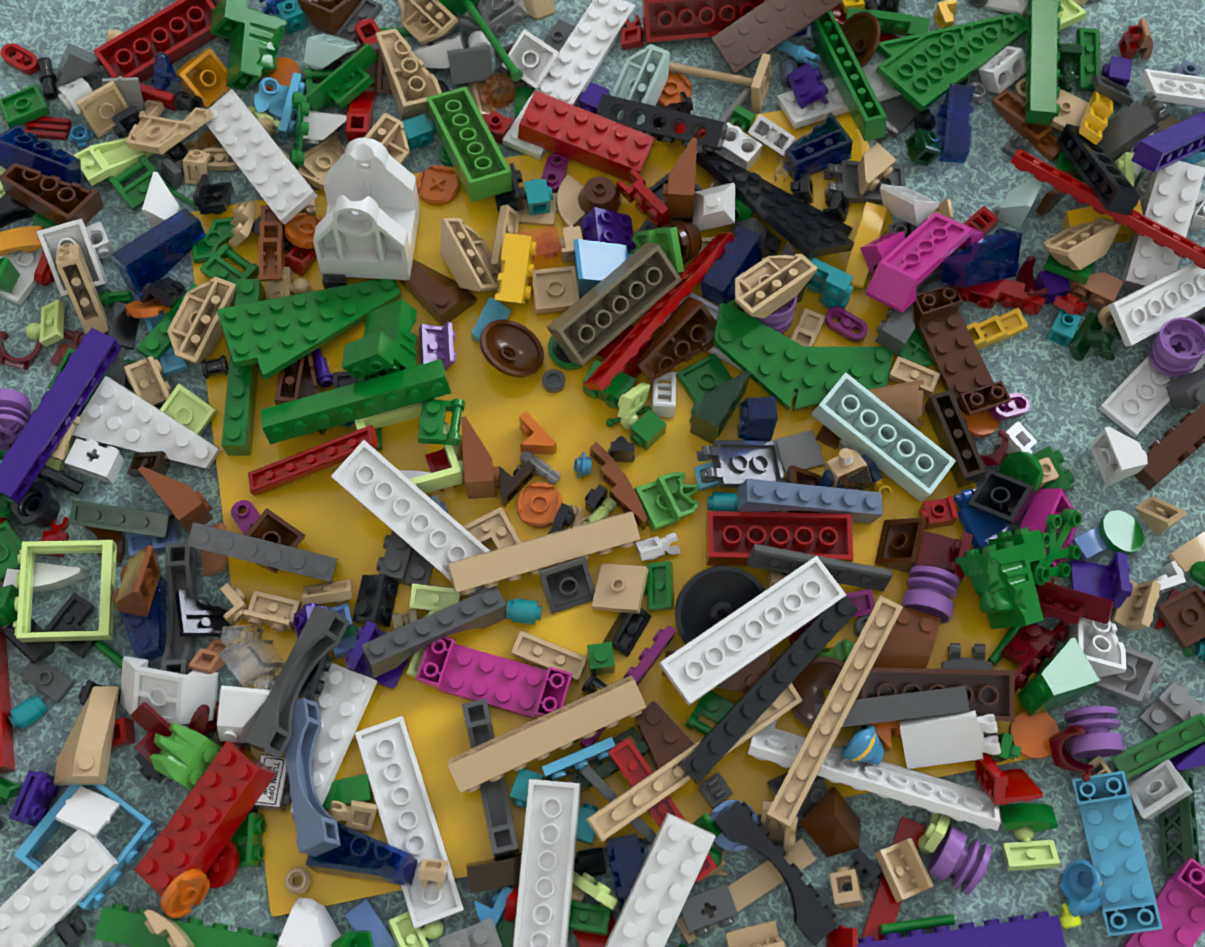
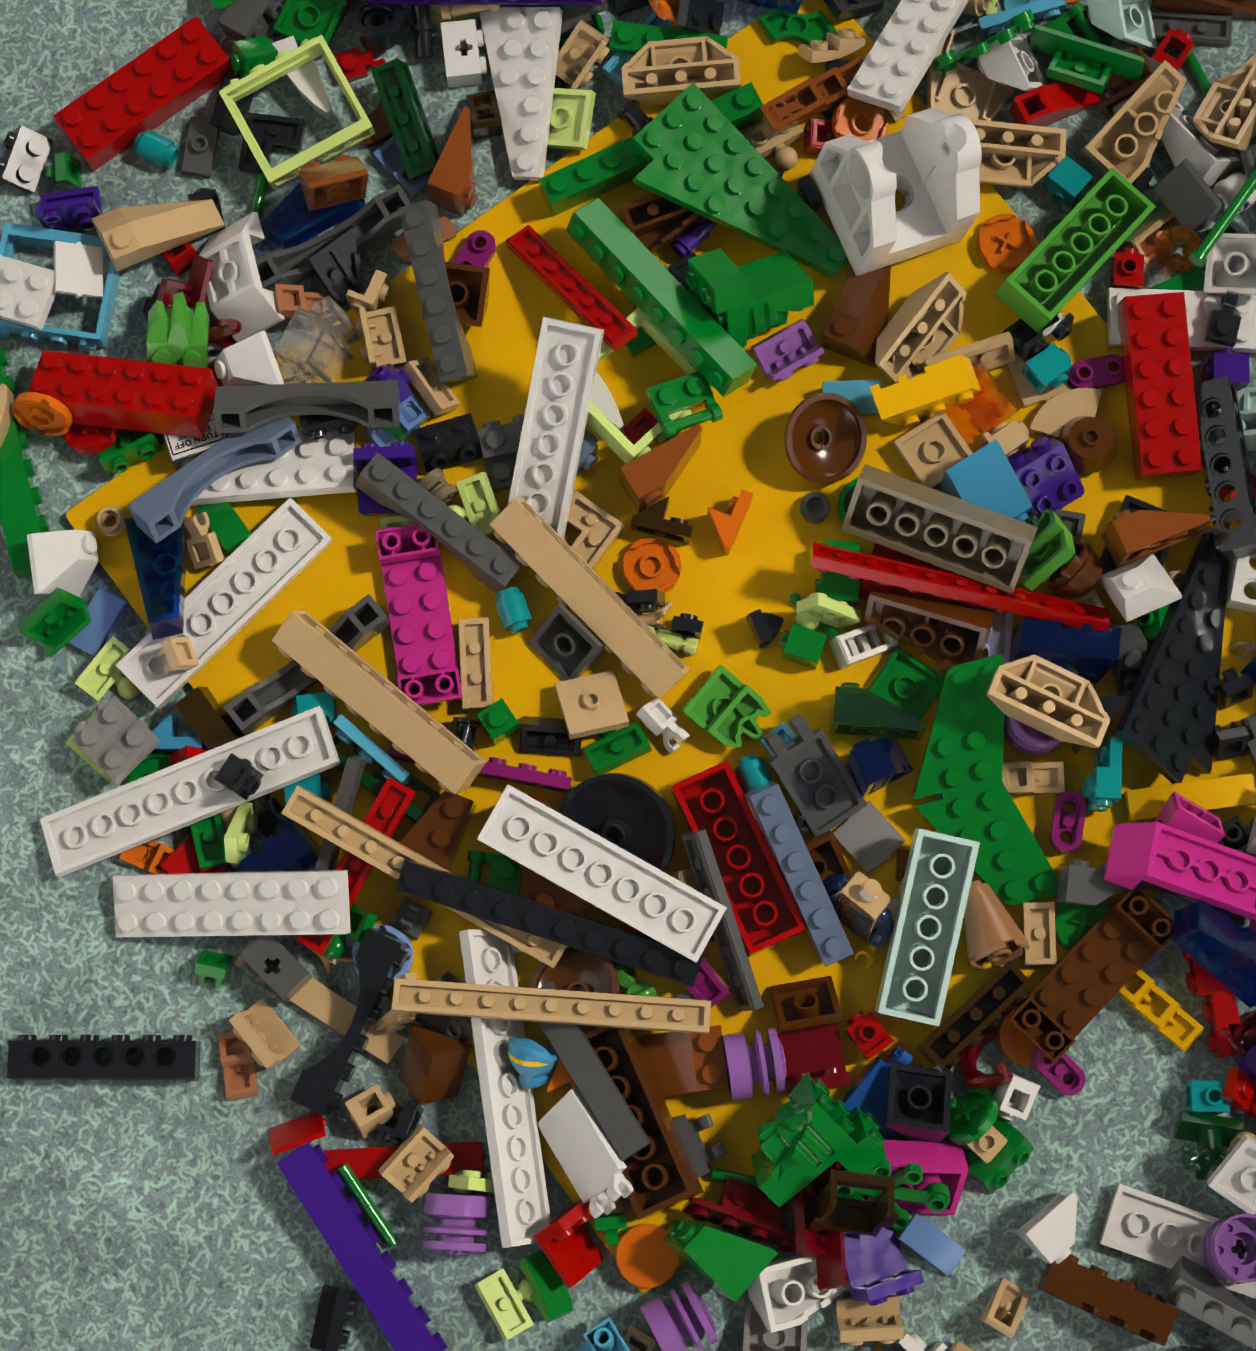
camera: 65 degrees right, 10 degrees up
(217, 267) = (758, 60): green plate -> none
(541, 467) = (697, 544): light grey axle -> none
(554, 865) = (239, 777): none -> black bracket
(563, 86) = (1222, 324): none -> black plate
(582, 465) = (722, 591): dark azure plate -> none
(622, 490) = (711, 653): dark orange slope -> none
(645, 199) = (1106, 498): red plate -> none
(1061, 756) = (635, 1296): dark red helmet -> none
(1062, 578) = (851, 1214): none -> dark brown piece
(1121, 532) = (957, 1270): tile -> none

